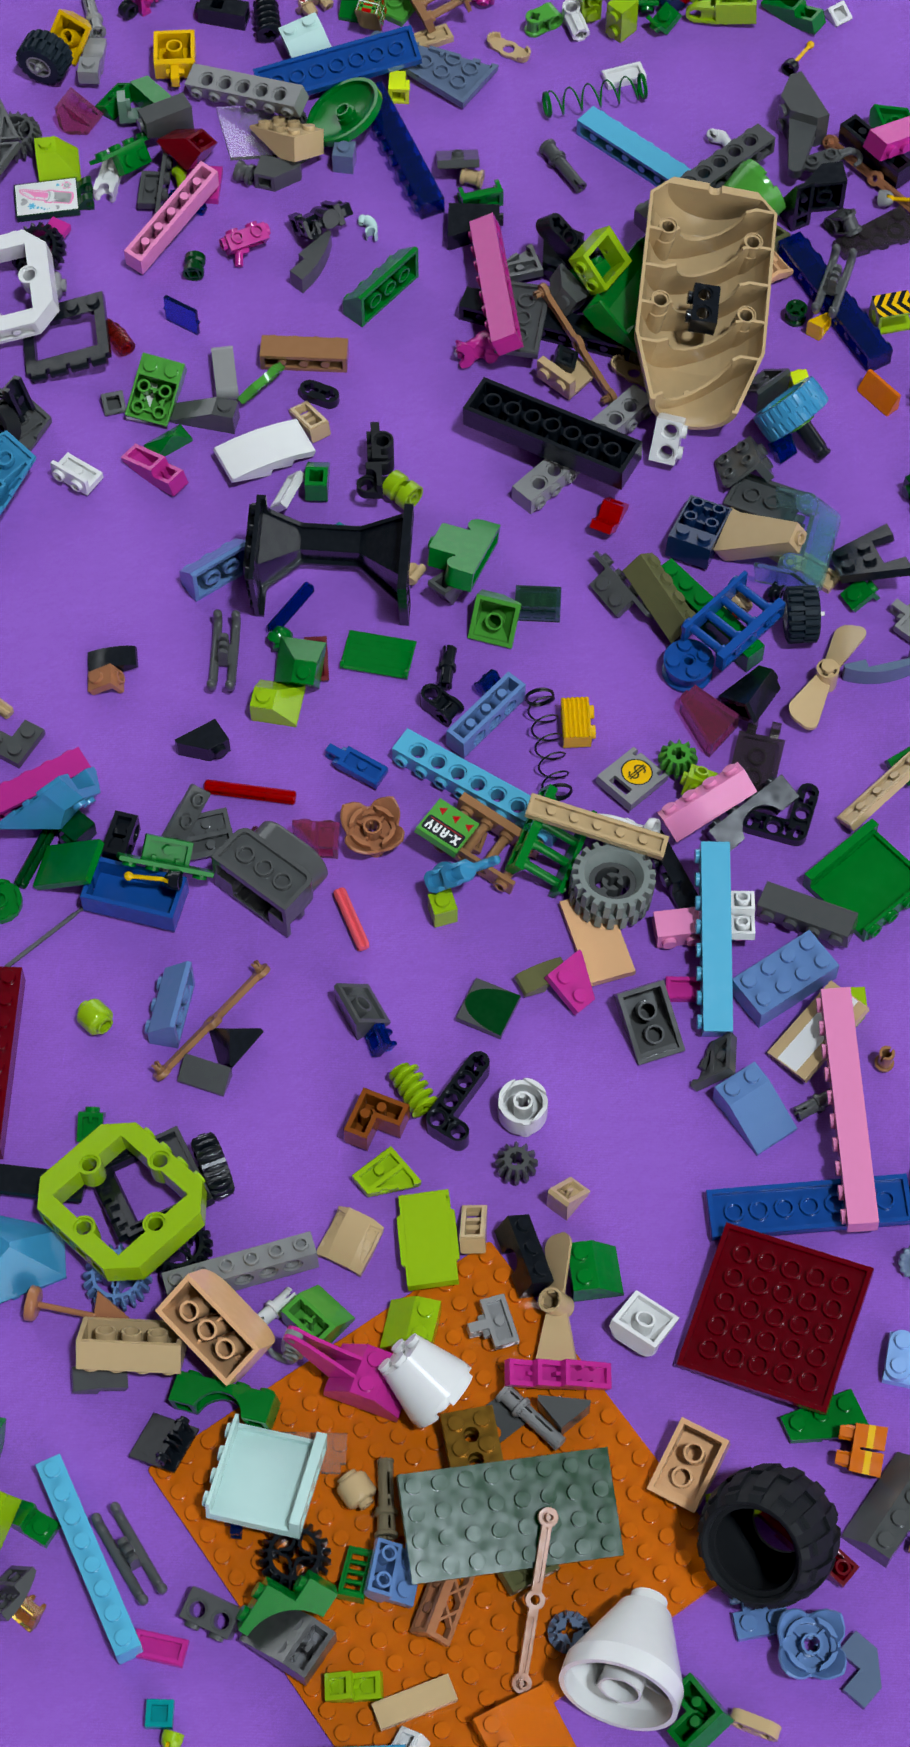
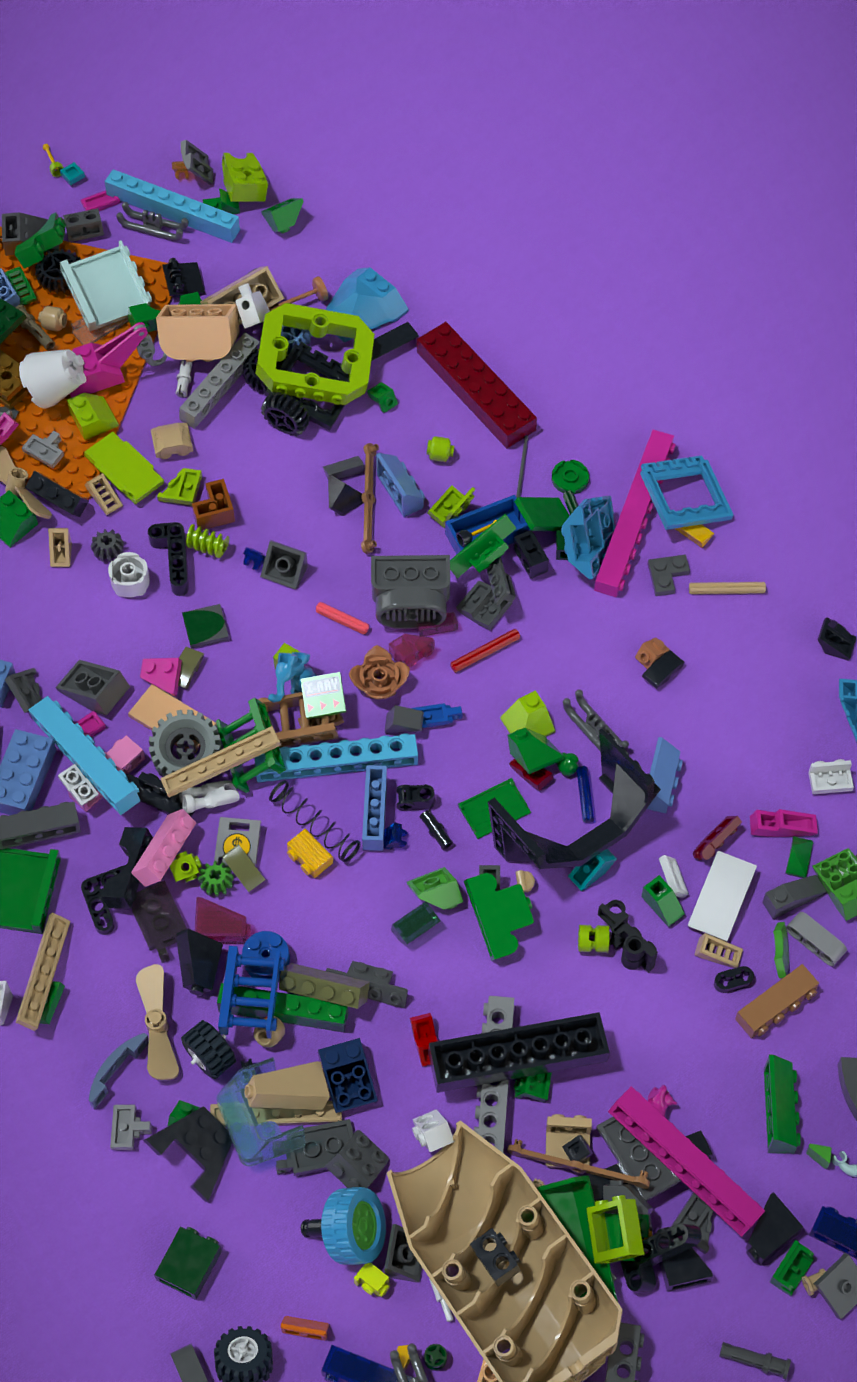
camera: 140 degrees right, 0 degrees up
(132, 1307) = (251, 306): none -> white torso
(143, 940) = (450, 505): none -> lime bracket
(204, 742) = (543, 657): black slope -> none
(219, 495) = (716, 838): none -> hinge
(317, 1314) = (153, 386): bright green slope -> none
(382, 241) = (820, 1154): none -> bright green slope
(391, 772) = (403, 720): none -> dark grey slope
(647, 746) = (243, 868): none -> olive slope

